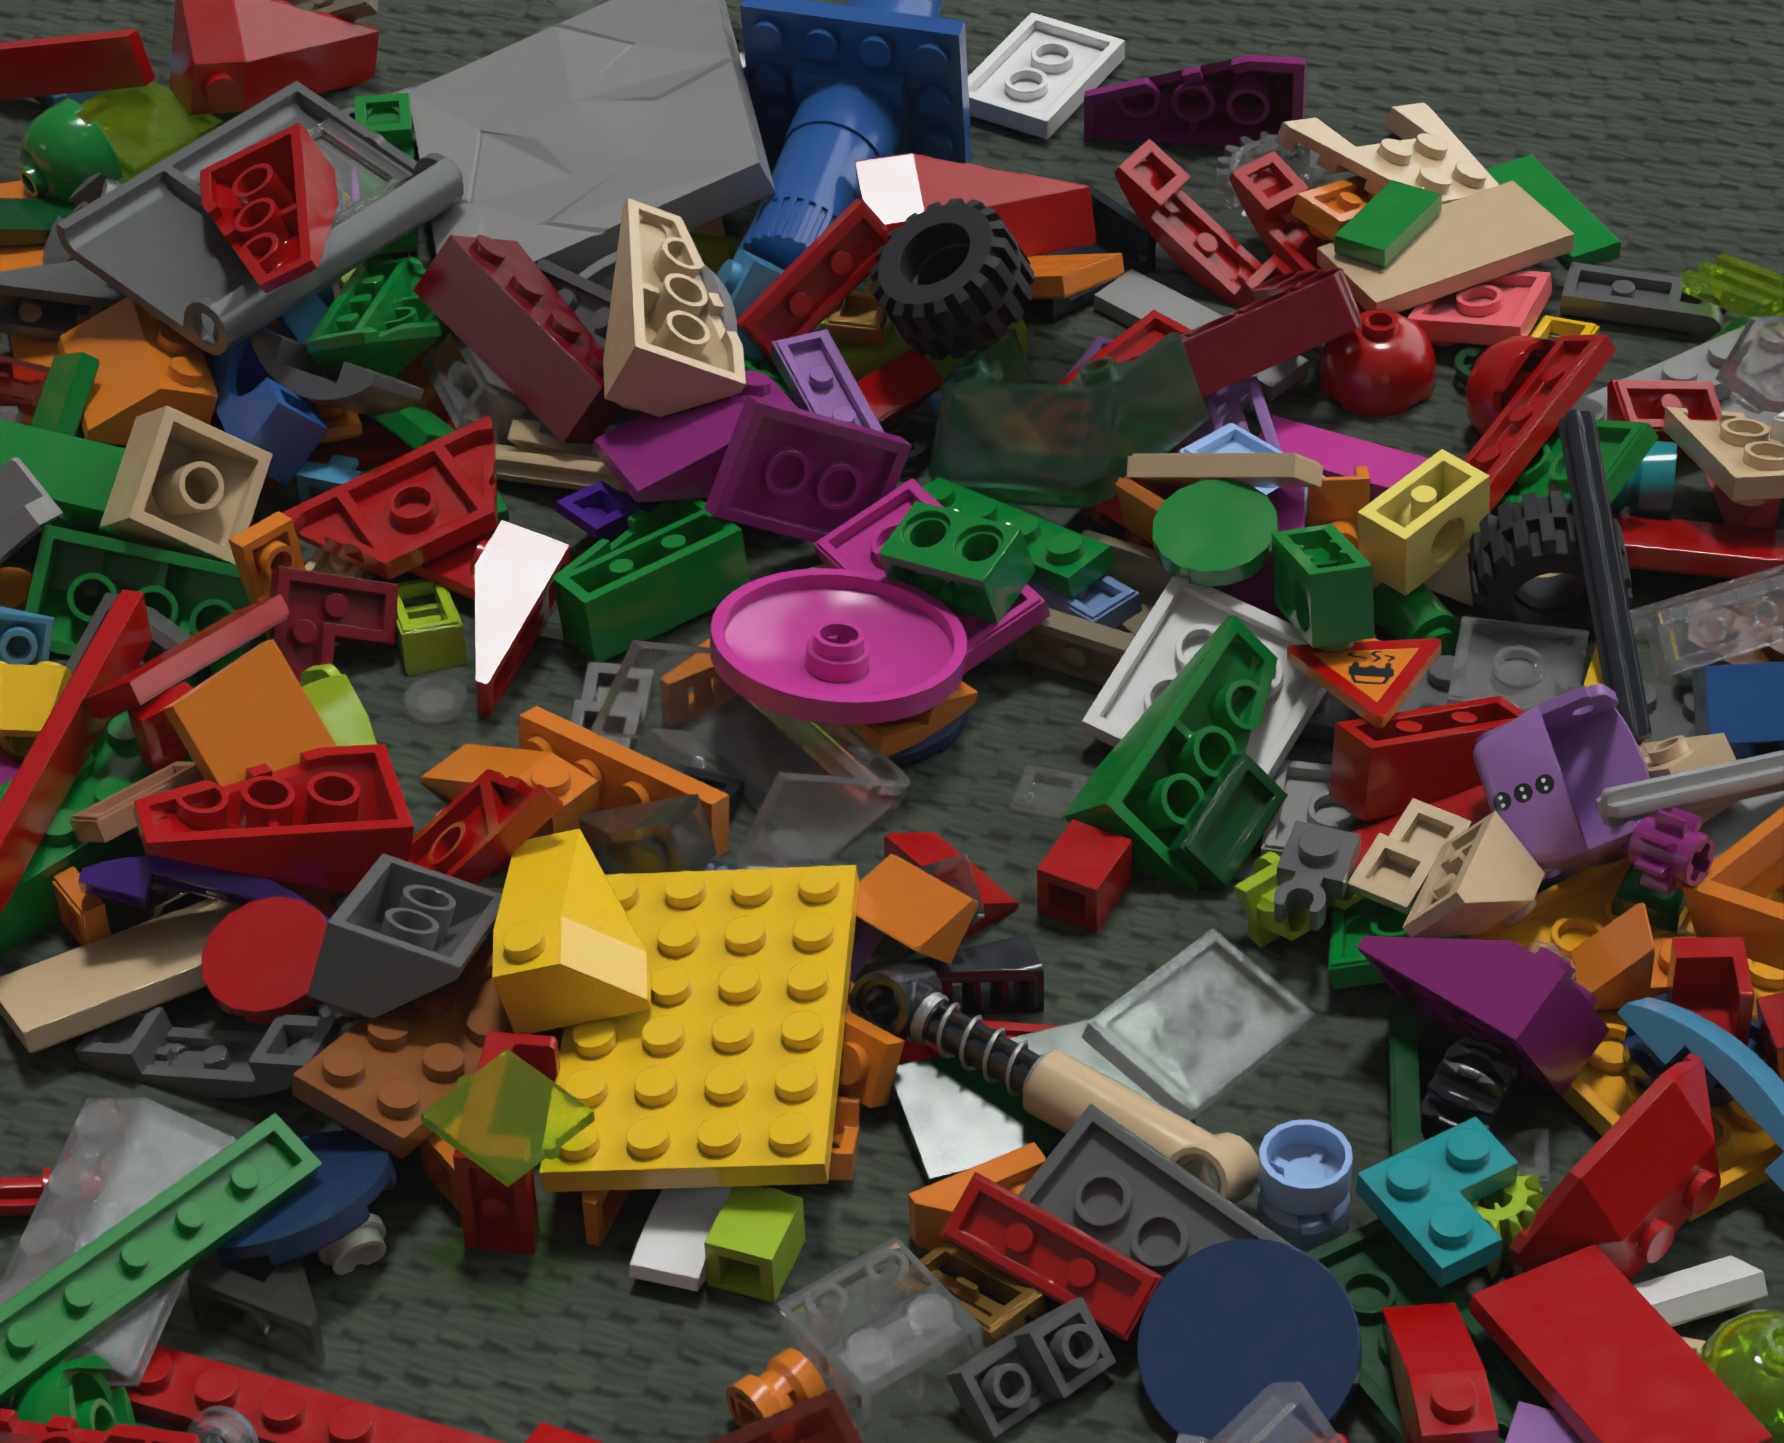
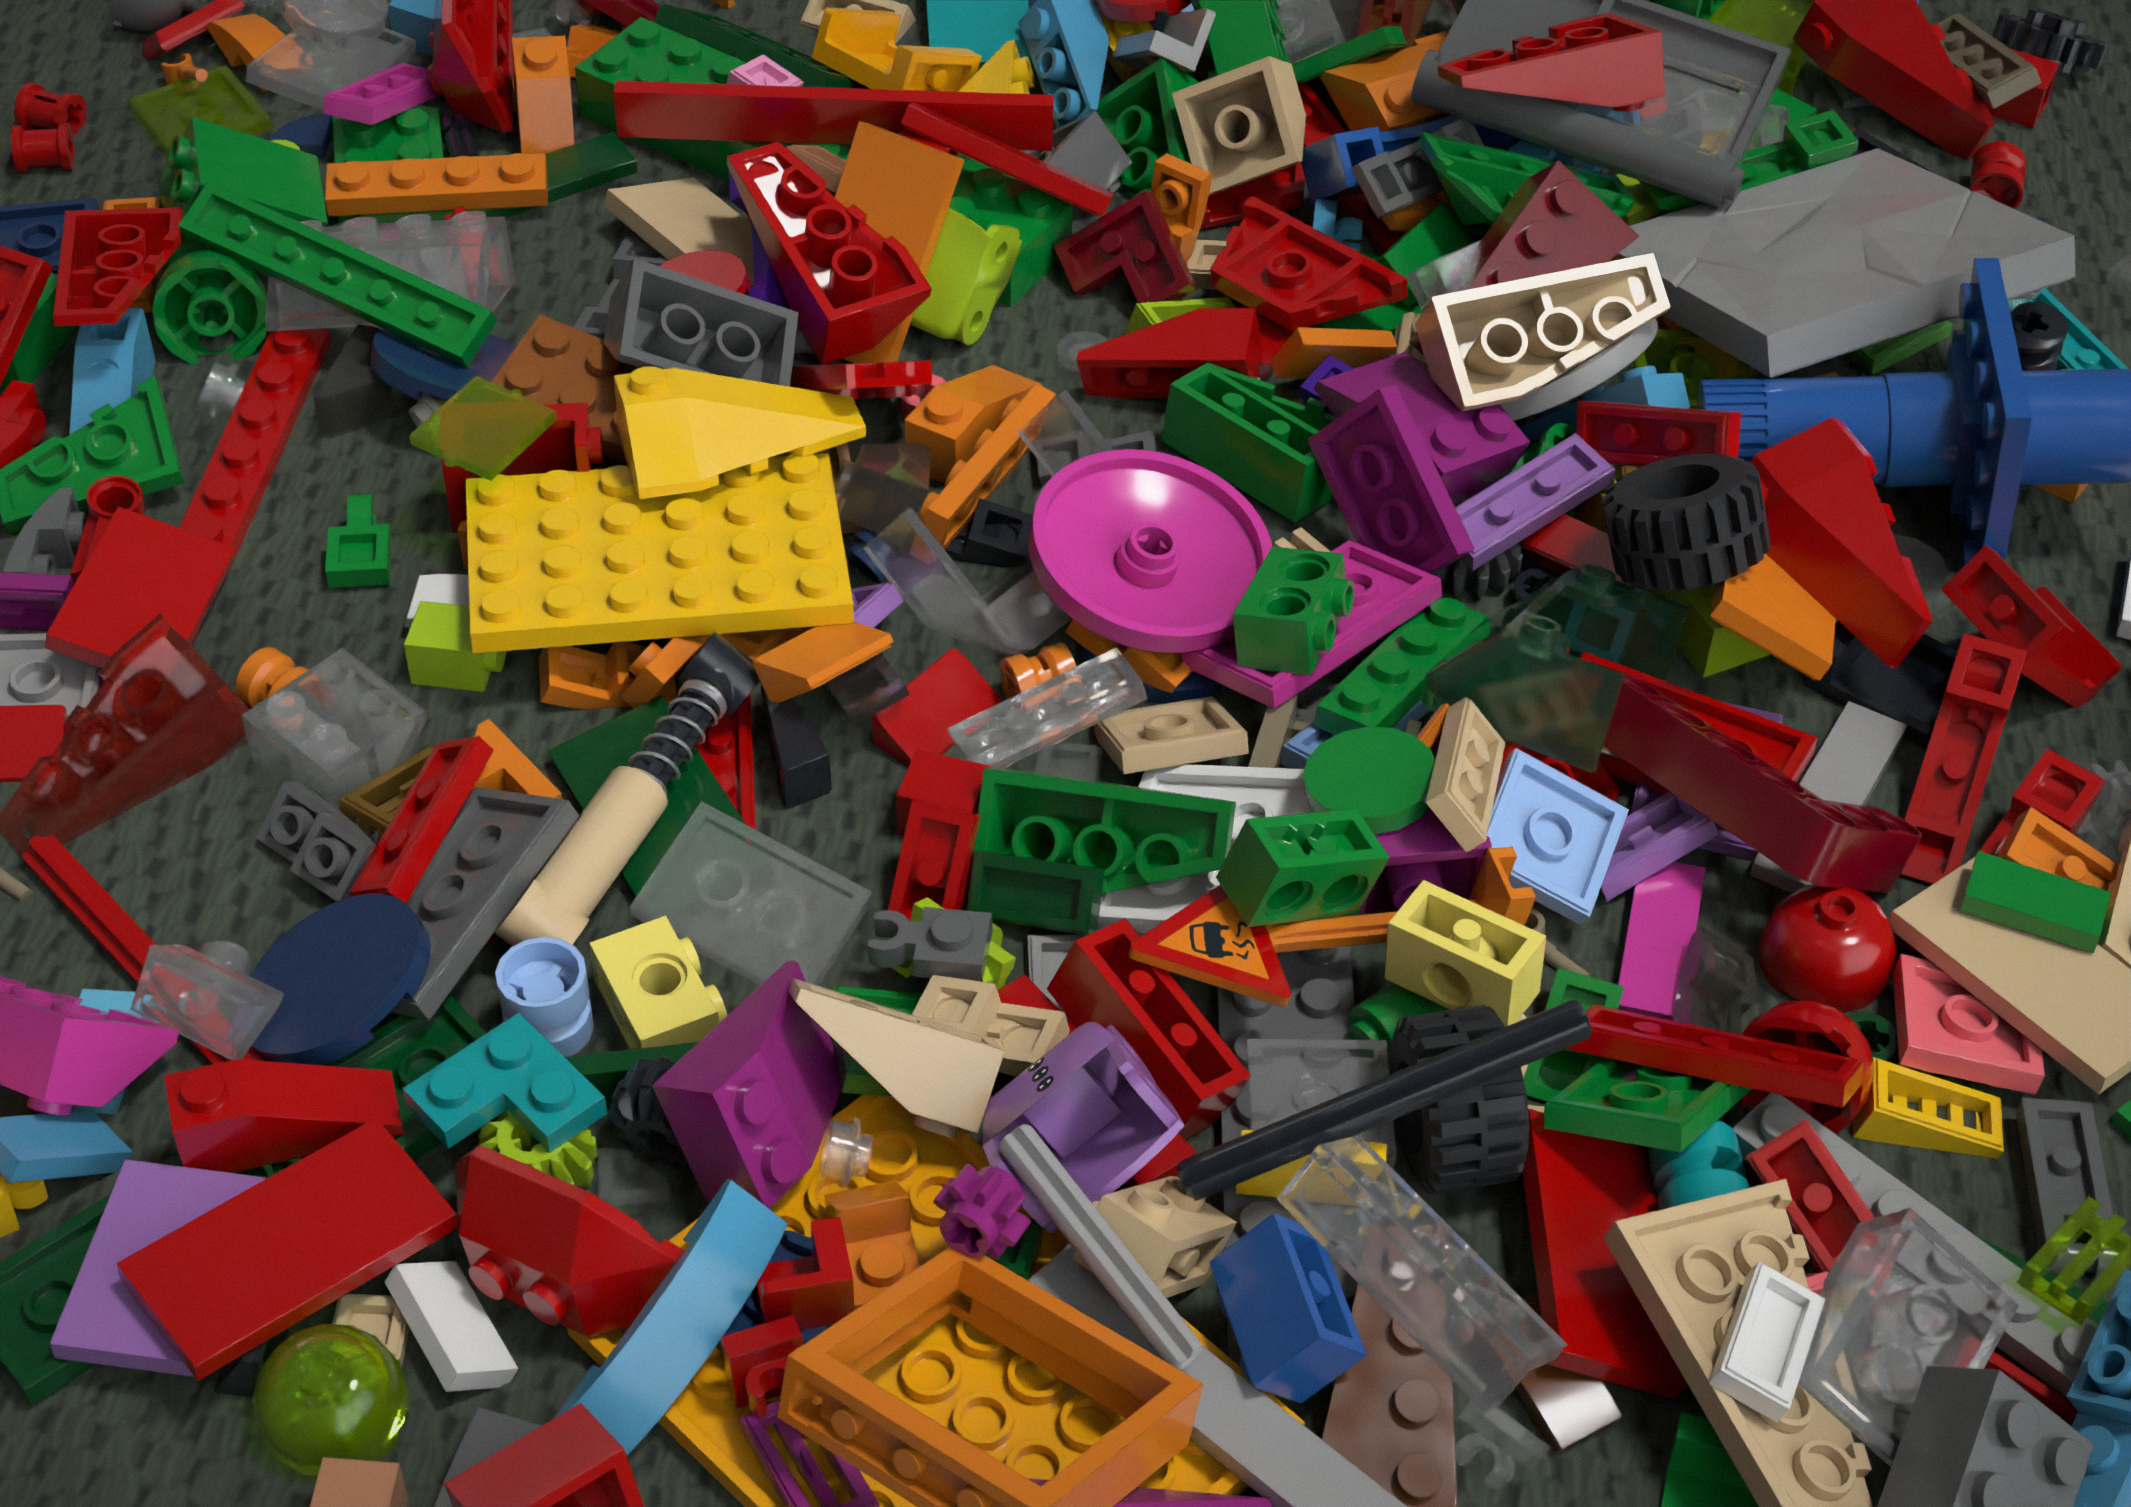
camera: 75 degrees right, 5 degrees up
(429, 54) = (1999, 173): none -> red wheel
(540, 498) = (1311, 346): none -> orange tile
(557, 1326) = (361, 549): none -> green plate
(935, 789) = (1022, 673): none -> orange wheel
(998, 780) = (1049, 712): none -> clear plate
(1042, 705) = (1171, 735): none -> tan tile
(1077, 147) = (2008, 611): none -> red panel
(1185, 886) = (934, 857): none -> red slope
(1318, 1087) = (655, 986): none -> light yellow brick
(1415, 433) = (1714, 984): none -> clear smoke slope

